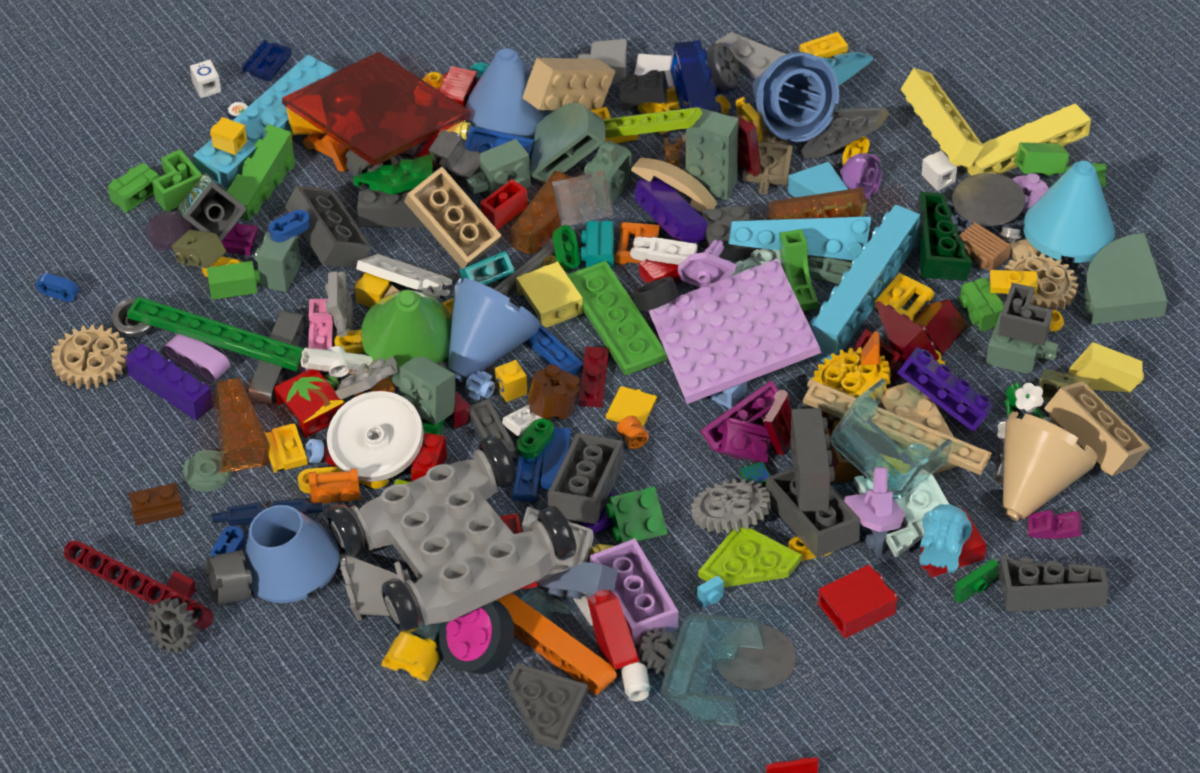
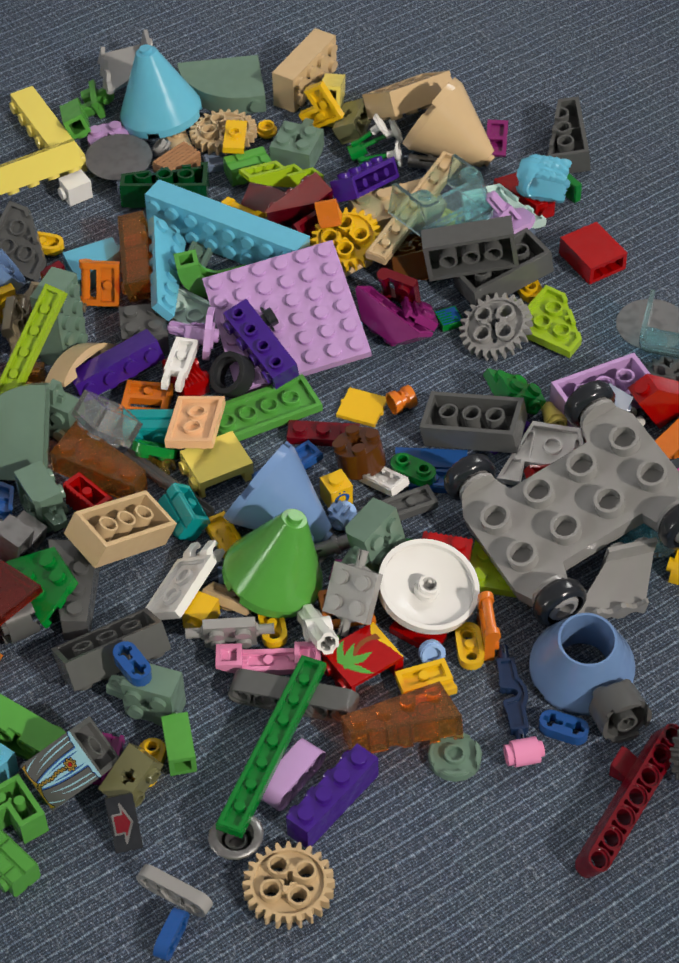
camera: 90 degrees left, 0 degrees up
(95, 287) = (174, 890): none -> light grey beam
(156, 504) = (505, 801): reddish brown plate -> none
(158, 249) = (123, 822): none -> black tile
(166, 229) = (83, 821): clear purple tile -> none
(199, 513) = (523, 752): none -> bright pink brick
(590, 268) = (195, 422): none -> light nougat plate
(686, 306) = (260, 344): none -> dark purple brick
(710, 592) = (592, 345): medium azure plate -> none
(714, 307) = (269, 318): none -> black plate
(788, 185) = (106, 282): none -> orange plate
(863, 172) = (81, 230): medium lavender cylinder -> none
(953, 322) = (276, 174): none -> lime slope
(1022, 319) = (291, 121): dark grey brick -> none
(1068, 354) = (324, 108): none -> yellow plate
(1133, 189) = (117, 64): none -> light grey piece
(1159, 345) = (304, 68): none -> tan brick

